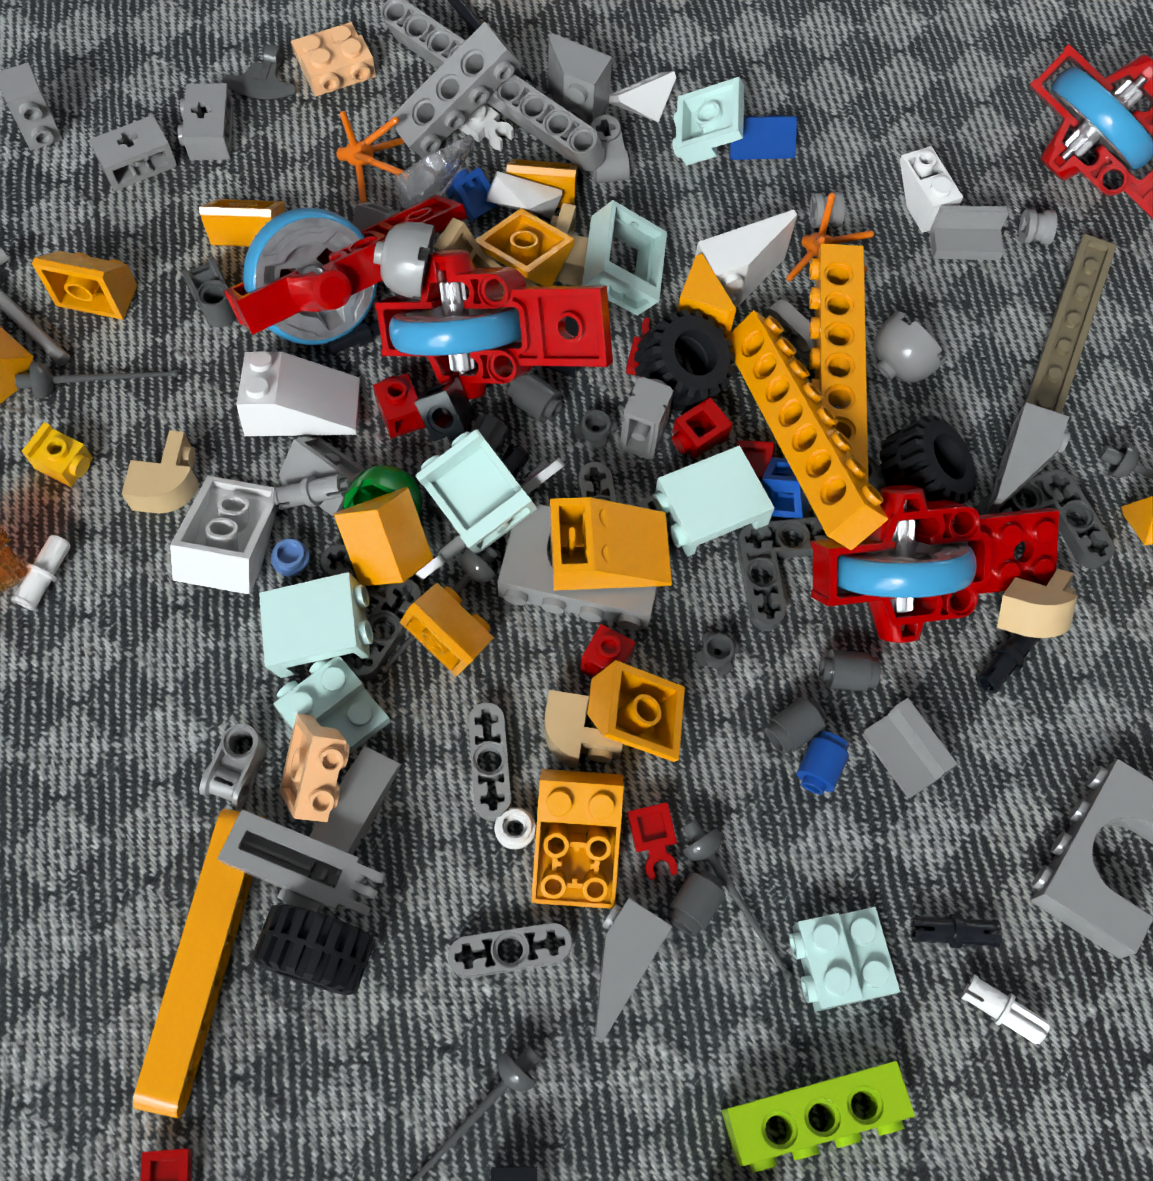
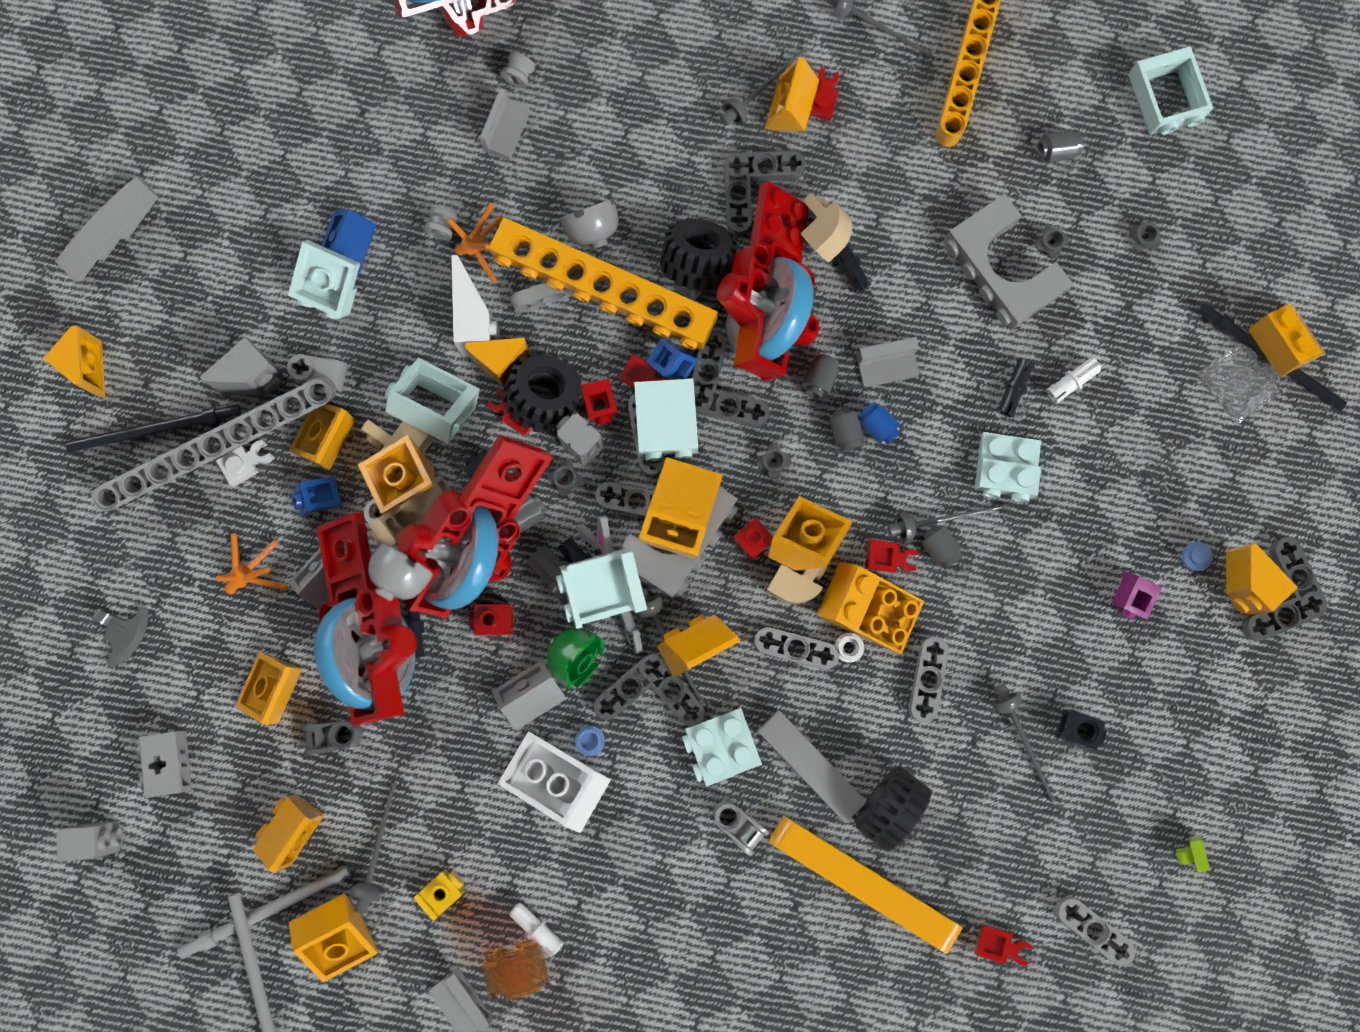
camera: 70 degrees left, 15 degrees up
(165, 484) = (497, 817): tan brick -> none
(206, 121) = (172, 691): light grey brick -> none
(289, 858) = (825, 808): light grey hinge -> none
(295, 397) = (459, 695): white slope -> none
(311, 491) = (546, 709): light grey pin -> none
(313, 769) = (770, 773): light nougat plate -> none
(314, 622) = (656, 738): light aqua panel -> none
(334, 58) = (125, 565): light nougat plate -> none
(384, 538) = (614, 667): light orange slope -> none
(432, 173) = (290, 522): clear slope -> none
(454, 399) = (515, 586): black brick -> none
(457, 74) = (227, 520): light grey brick -> none
(524, 194) = (342, 458): white slope -> none
(627, 952) = (960, 604): light grey slope -> none
(646, 96) = (267, 318): white slope -> none
(806, 432) = (565, 332): light orange brick -> none
(879, 1084) = (1084, 536): lime brick -> none
(927, 186) = (453, 136): white slope -> none
(1030, 446) = (708, 174): light grey slope -> none
(1070, 324) = (629, 106): dark tan plate -> none

